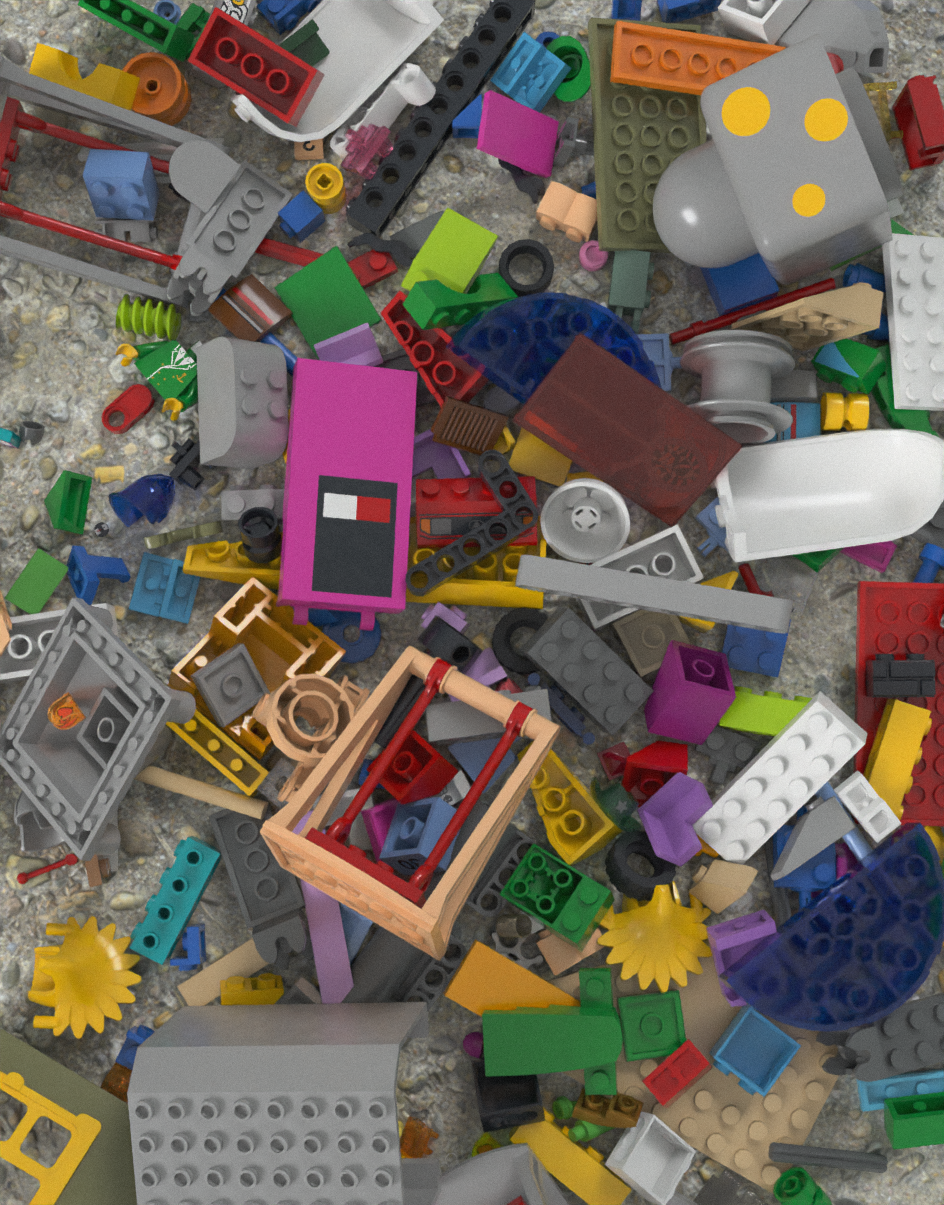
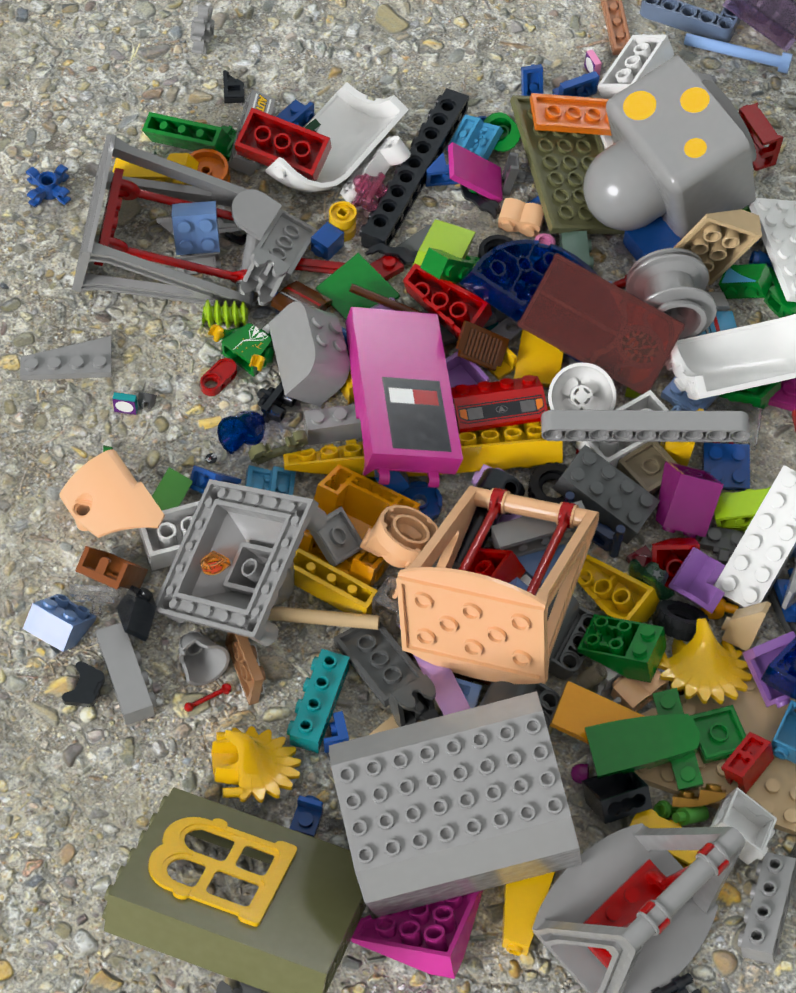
camera: 15 degrees left, 25 degrees down
(69, 502) = (183, 440): green slope -> none
(260, 534) = (340, 433): black wheel -> none
(309, 150) = (322, 200): light nougat tile -> none
(362, 337) = (380, 299): none -> reddish brown bar
(480, 535) = (526, 384): black beam -> none
(846, 411) = (751, 312): yellow wheel -> none

